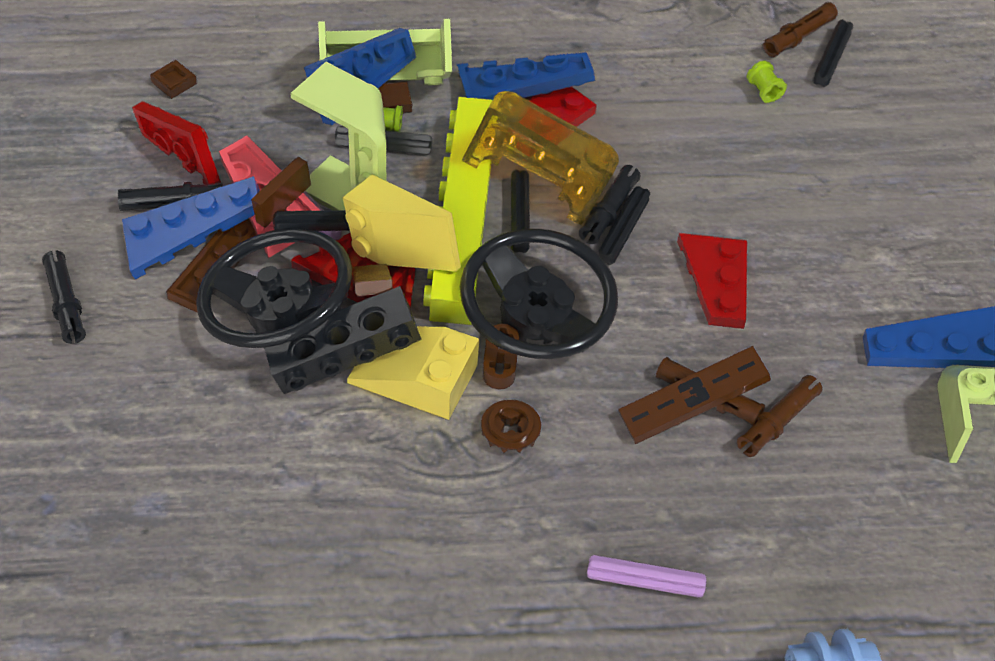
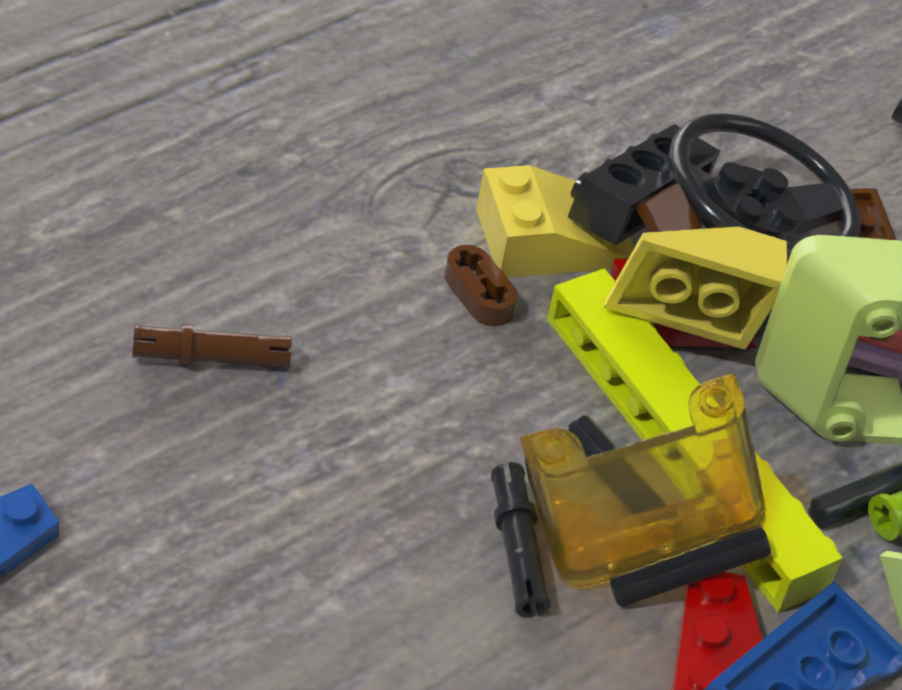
camera: 140 degrees right, 5 degrees down
(511, 413) = (387, 206): reddish brown gear -> none
(536, 300) = (489, 339): black piece -> none
(624, 225) = (479, 526): black axle -> none
(646, 576) = (151, 137): lavender axle -> none
(694, 394) = (220, 310): reddish brown tile -> none
(720, 276) = (304, 517): red wing -> none
(771, 423) = (113, 340): reddish brown pin -> none

